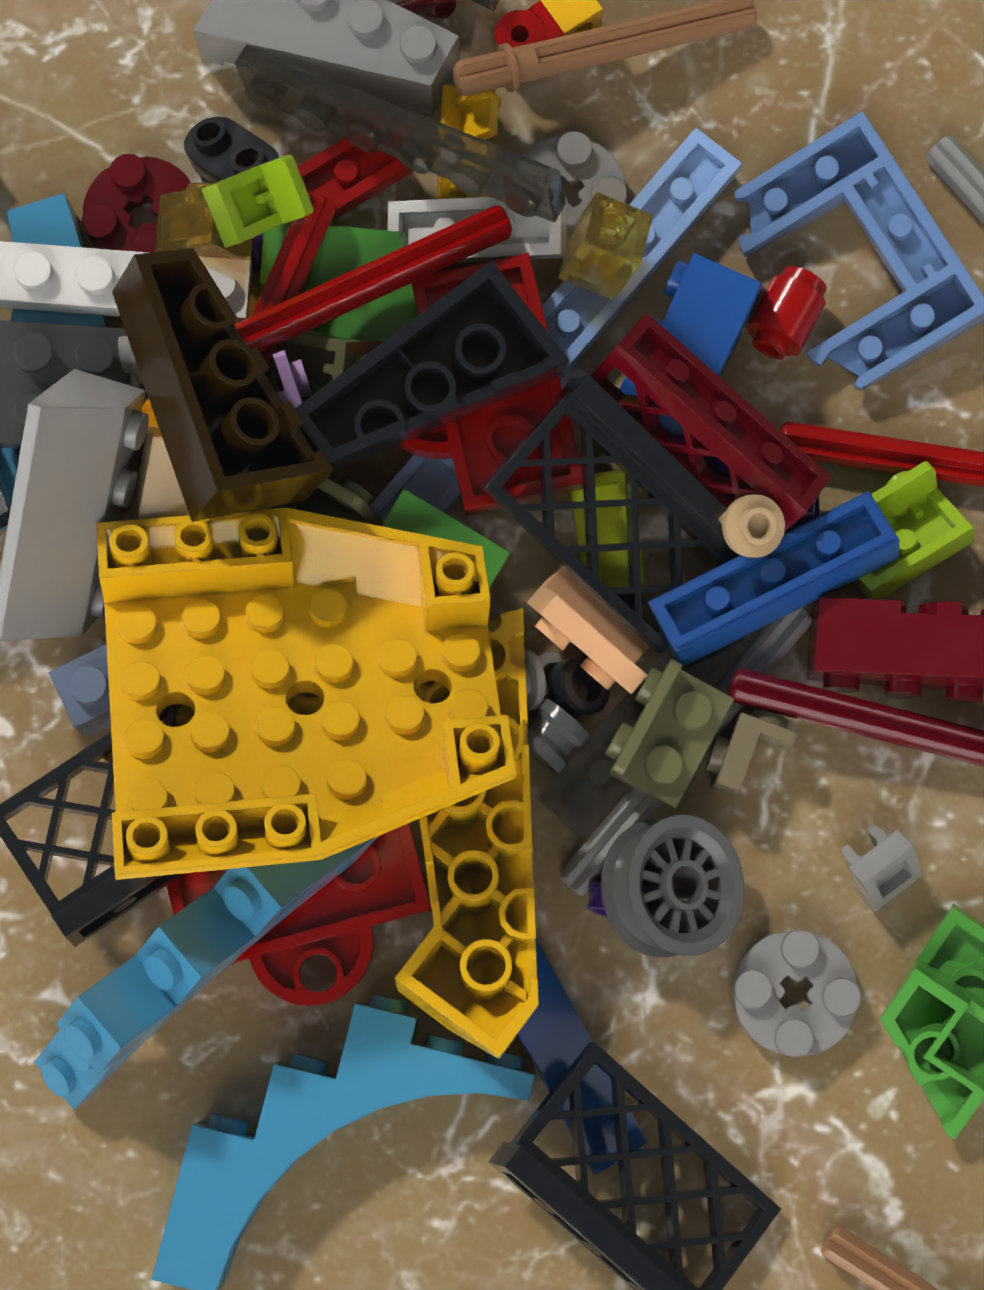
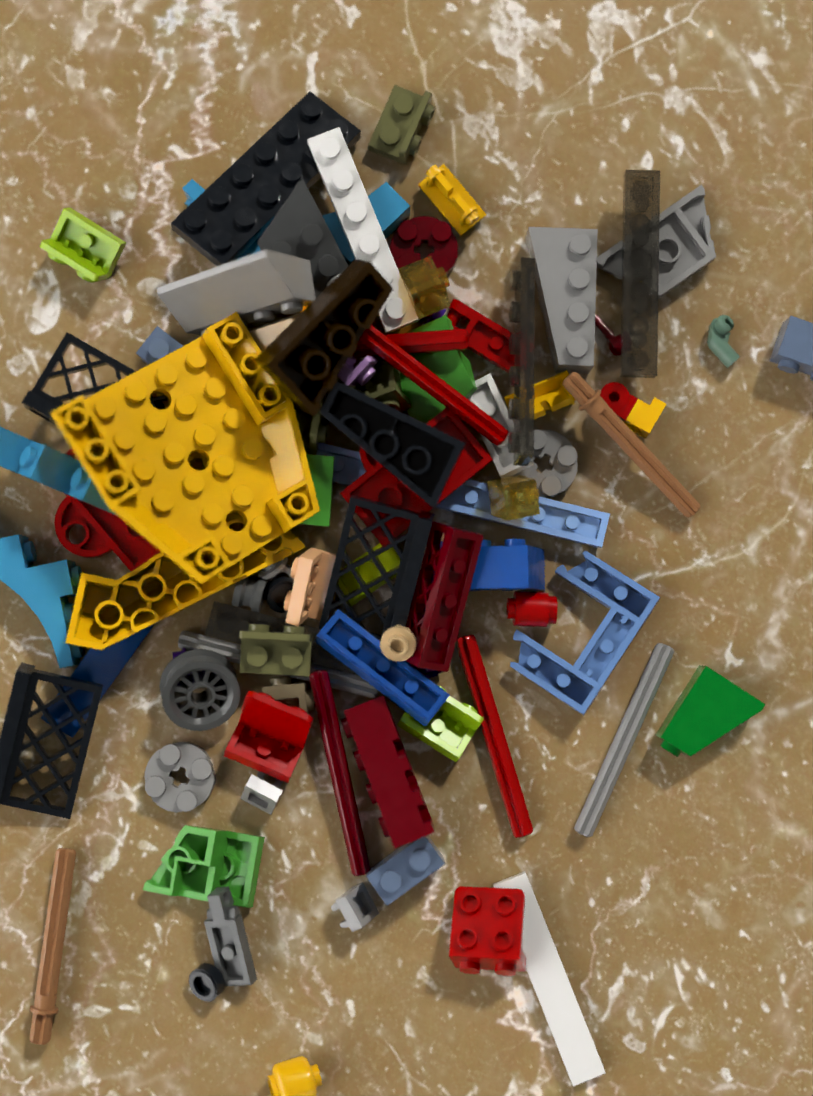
camera: 65 degrees right, 5 degrees up
(84, 136) = (451, 199): none -> yellow hinge
(225, 148) = (475, 280): black plate -> none
(257, 200) = (444, 307): lime bracket -> none
(799, 809) = (269, 736): none -> red bracket

